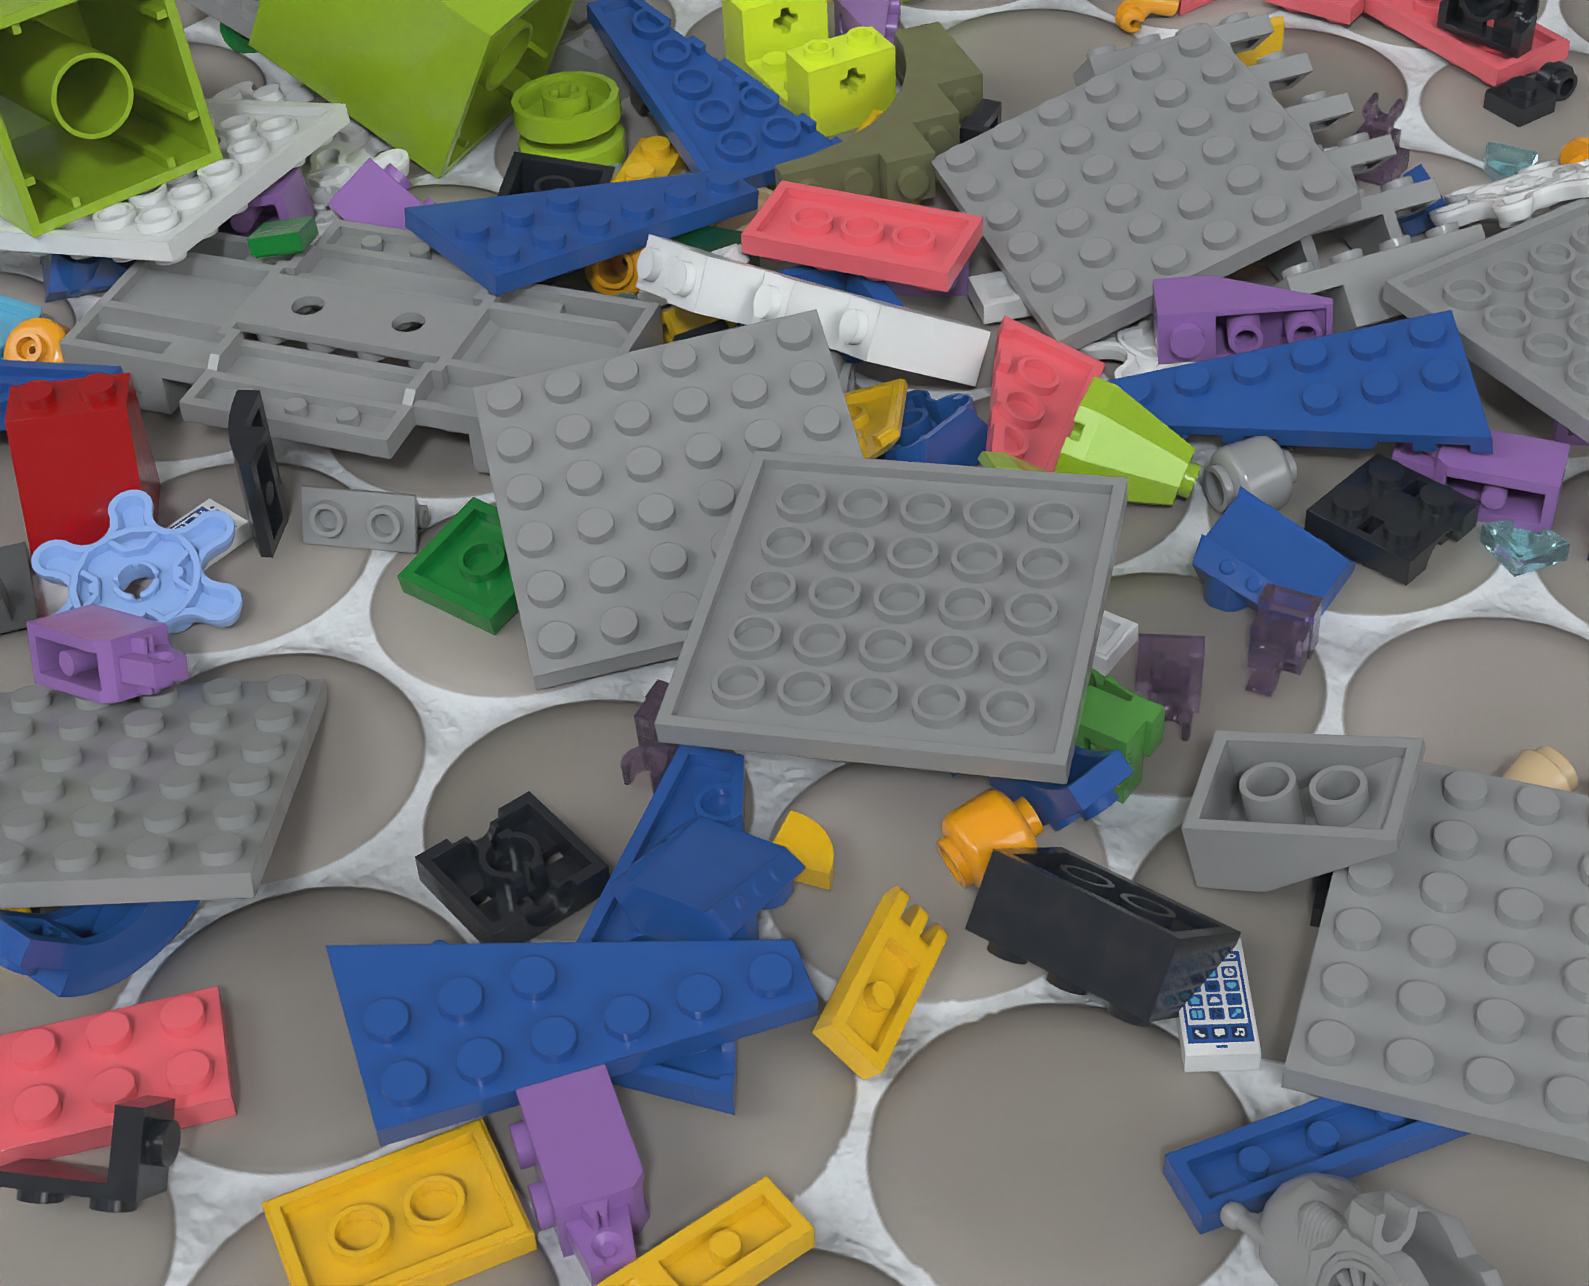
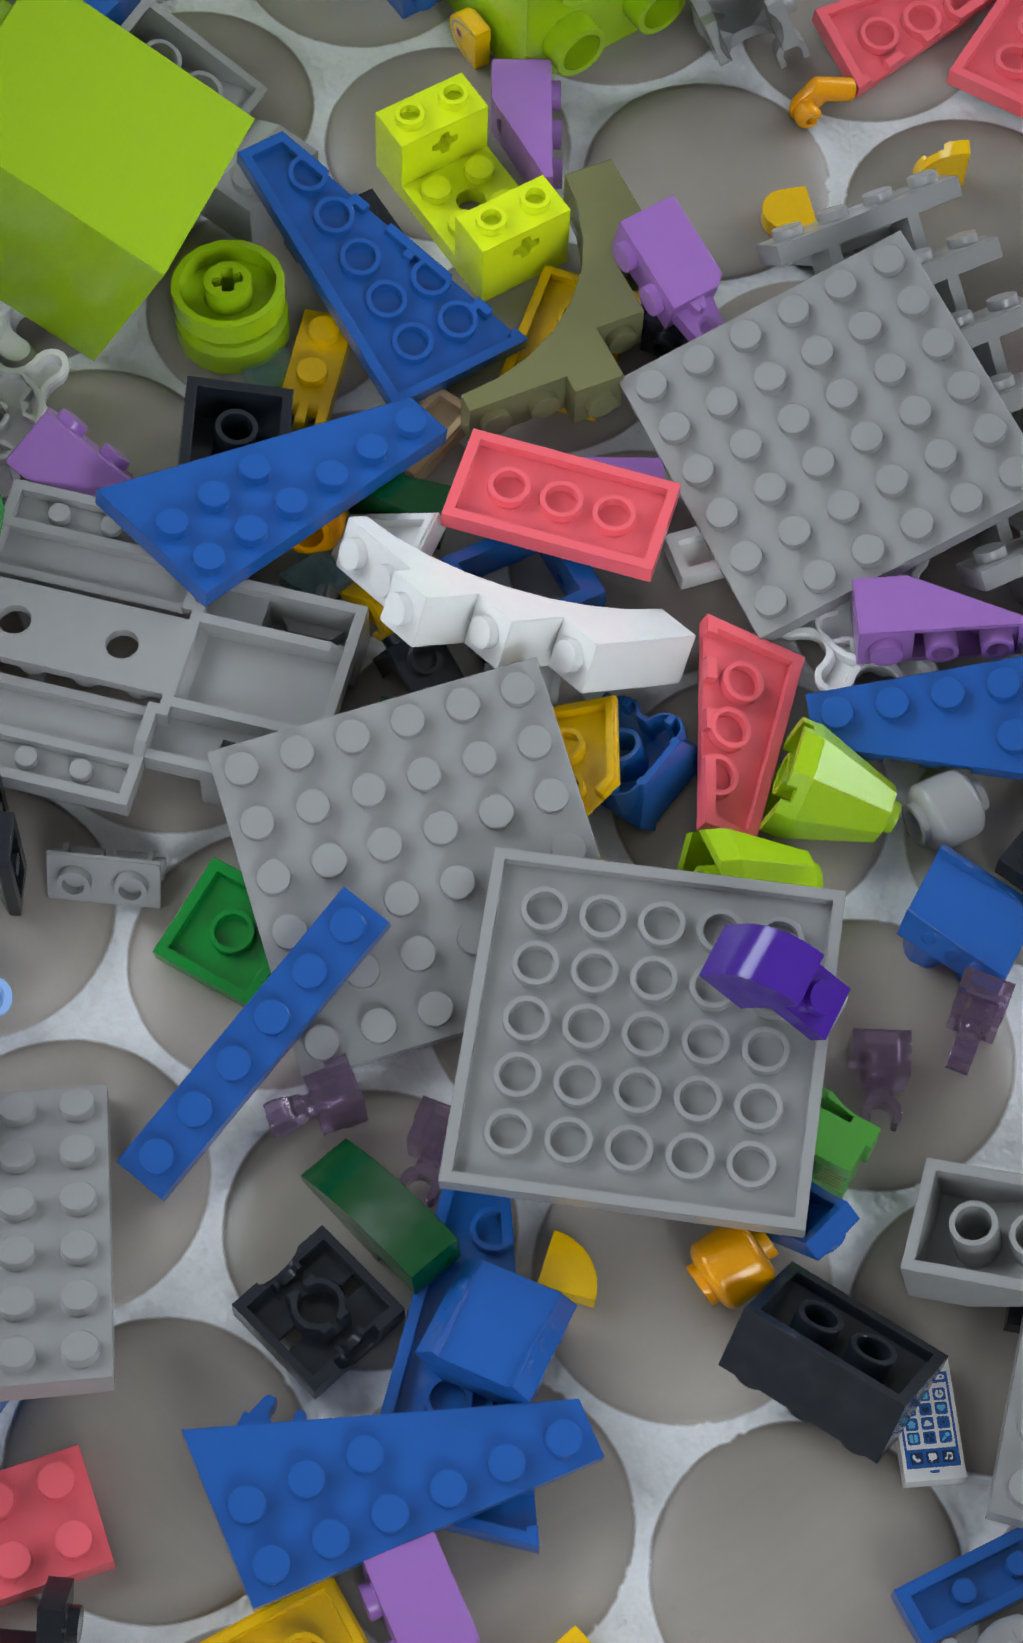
camera: 10 degrees left, 20 degrees up
(479, 635) = (253, 1044): none -> blue plate
(560, 689) = (330, 1096): none -> clear purple piece
(604, 790) = (383, 1215): none -> dark green slope
(880, 985) = (651, 1420): yellow hinge -> none
(982, 72) = (670, 267): none -> medium lavender hinge
(1043, 514) = (776, 971): none -> dark purple brick

